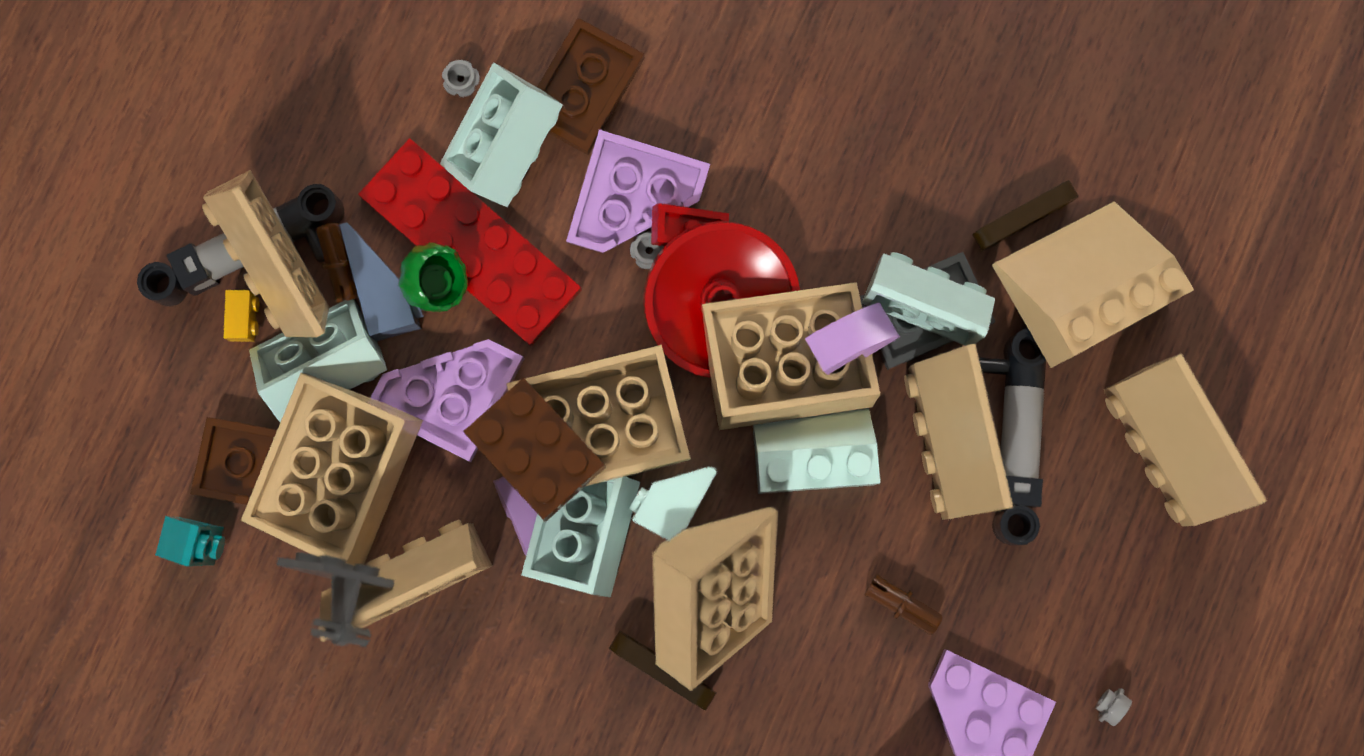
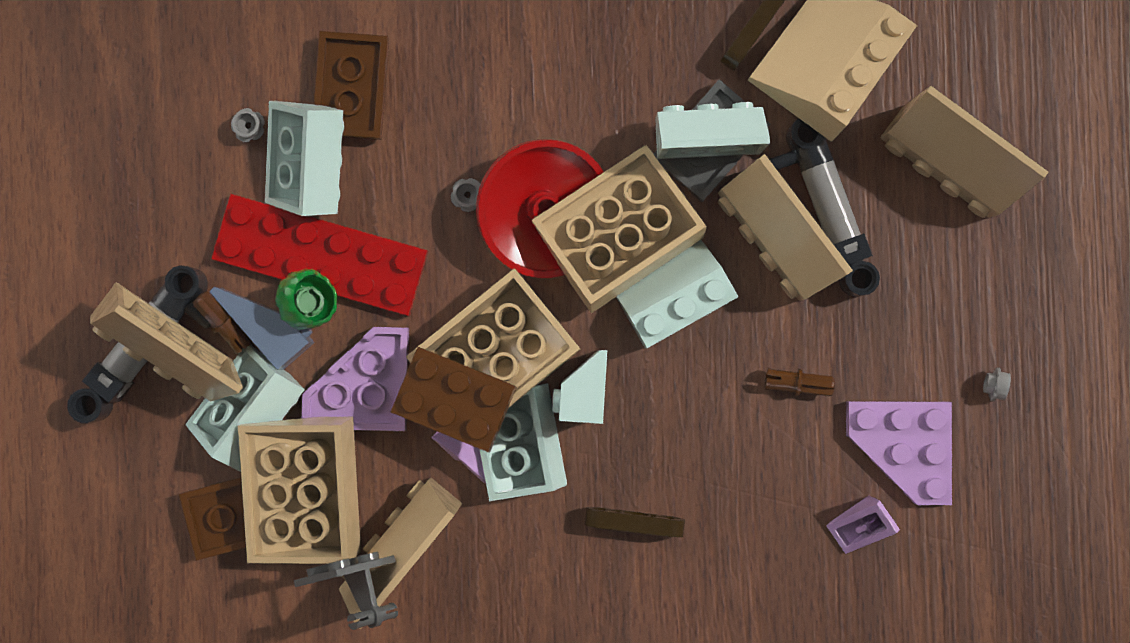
camera: 30 degrees left, 5 degrees up
(190, 542) = (215, 598): teal slope -> none
(240, 316) = (165, 400): yellow piece -> none
(625, 184) = (430, 153): lavender plate -> none
(672, 220) = (476, 162): red plate -> none
(713, 593) = (647, 446): tan slope -> none
(852, 336) = (663, 191): lavender slope -> none

